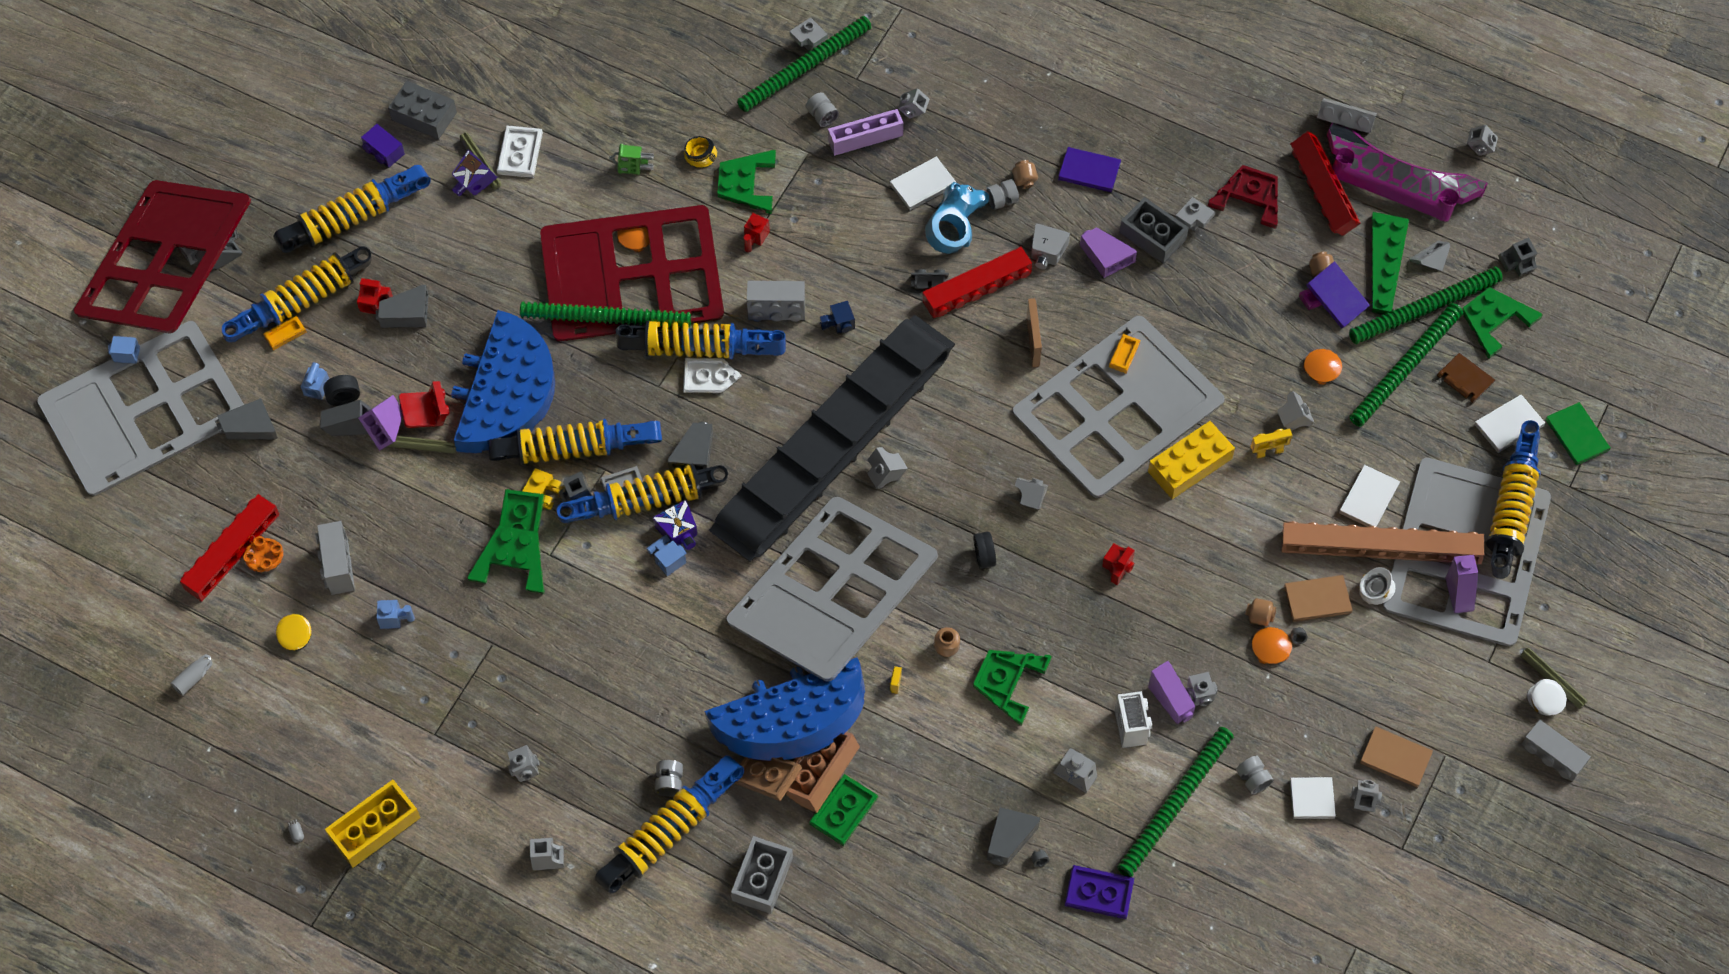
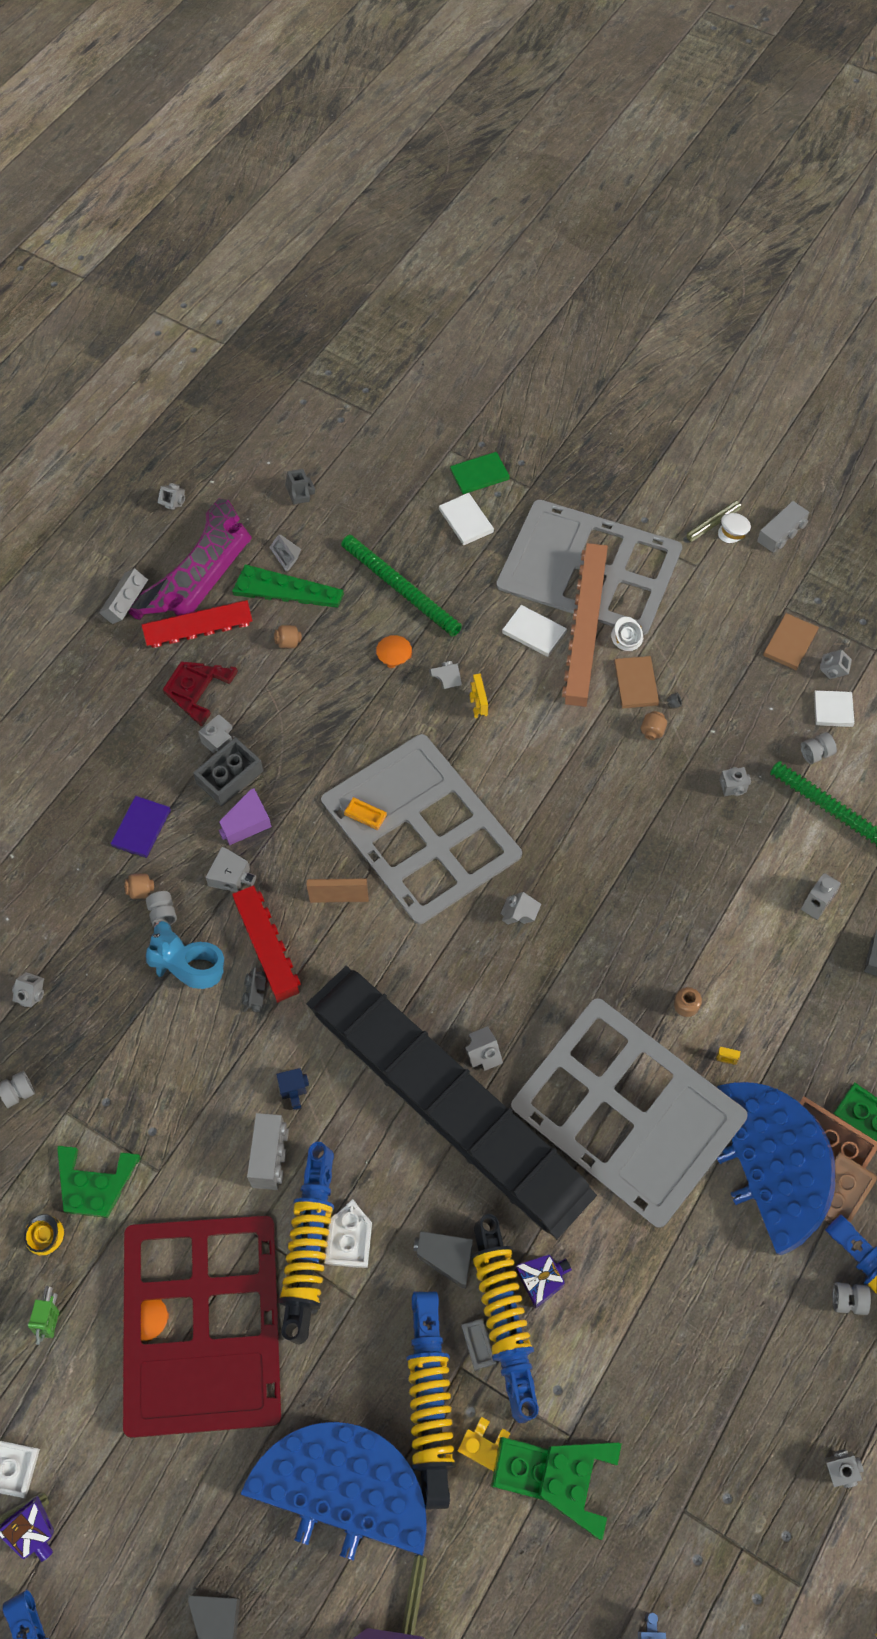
camera: 85 degrees left, 0 degrees up
(424, 408) = (365, 1598): red bracket -> none
(575, 488) = (490, 1398): dark grey brick -> none
(601, 314) = (258, 1359): green piece -> none
(667, 557) = (581, 1290): medium blue brick -> none
(755, 231) = (167, 1173): red brick -> none
(865, 132) = (56, 1042): lavender brick -> none
(922, 183) = (129, 990): white tile -> none
(984, 550) = (586, 957): black tyre -> none
(1001, 675) = (722, 957): green wing -> none
(1118, 562) = (600, 839): red brick -> none
(1132, 719) = (771, 840): white piece -> none
(1171, 693) = (739, 806): medium lavender slope -> none
(1191, 459) = (491, 766): yellow brick -> none
(1271, 645) = (684, 723): orange dish -> none
(1309, 299) = (320, 649): magenta plate -> none
(1338, 294) = (322, 626): dark purple tile -> none
(1425, 305) = (340, 564): green piece -> none
(1462, 583) = (632, 565): medium lavender slope -> none
(1466, 377) = (416, 544): reddish brown piece -> none
(1491, 311) = (350, 517): green wing -> none
(1515, 501) = (551, 519): piece -> none

